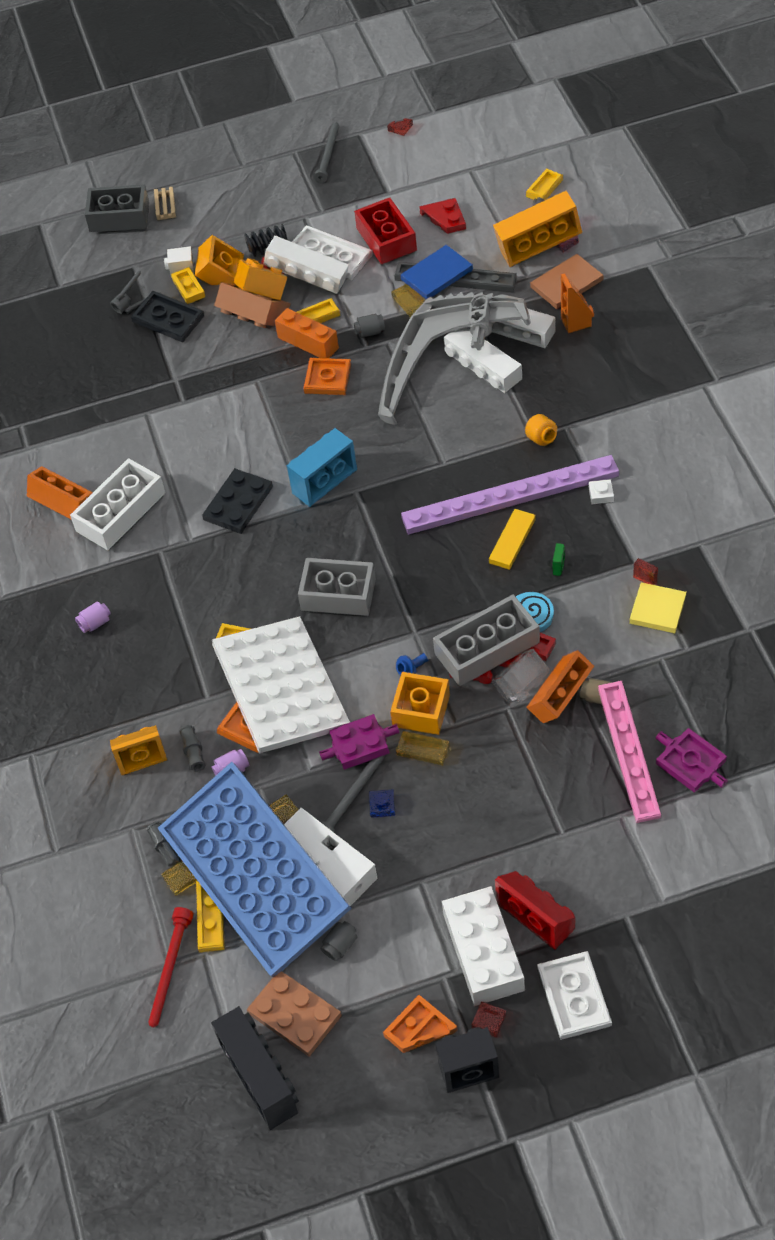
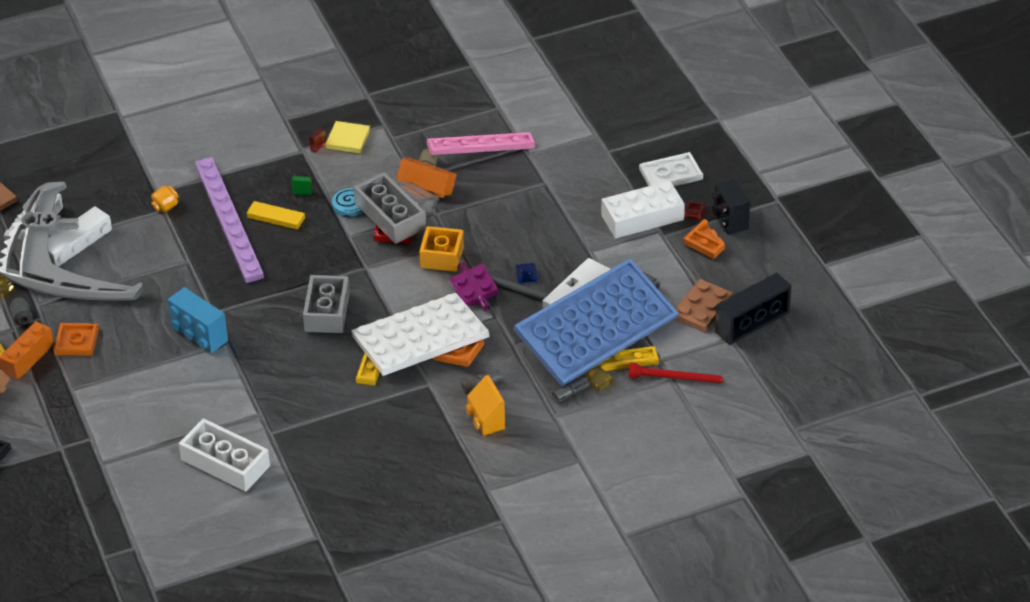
camera: 100 degrees left, 10 degrees down
(55, 491) = (208, 498): orange brick -> none
(93, 617) = (349, 460): lavender brick -> none
(237, 501) = (219, 384): black plate -> none
(237, 757) = (498, 355): lavender brick -> none
(405, 664) = (401, 265): blue plate -> none
(422, 748) = (476, 252): clear yellow tile -> none
(534, 908) = (616, 181): red slope -> none
(574, 308) = (32, 172): orange slope -> none
(601, 491) = (230, 168): white plate -> none
(691, 760) = (485, 117): magenta plate -> none

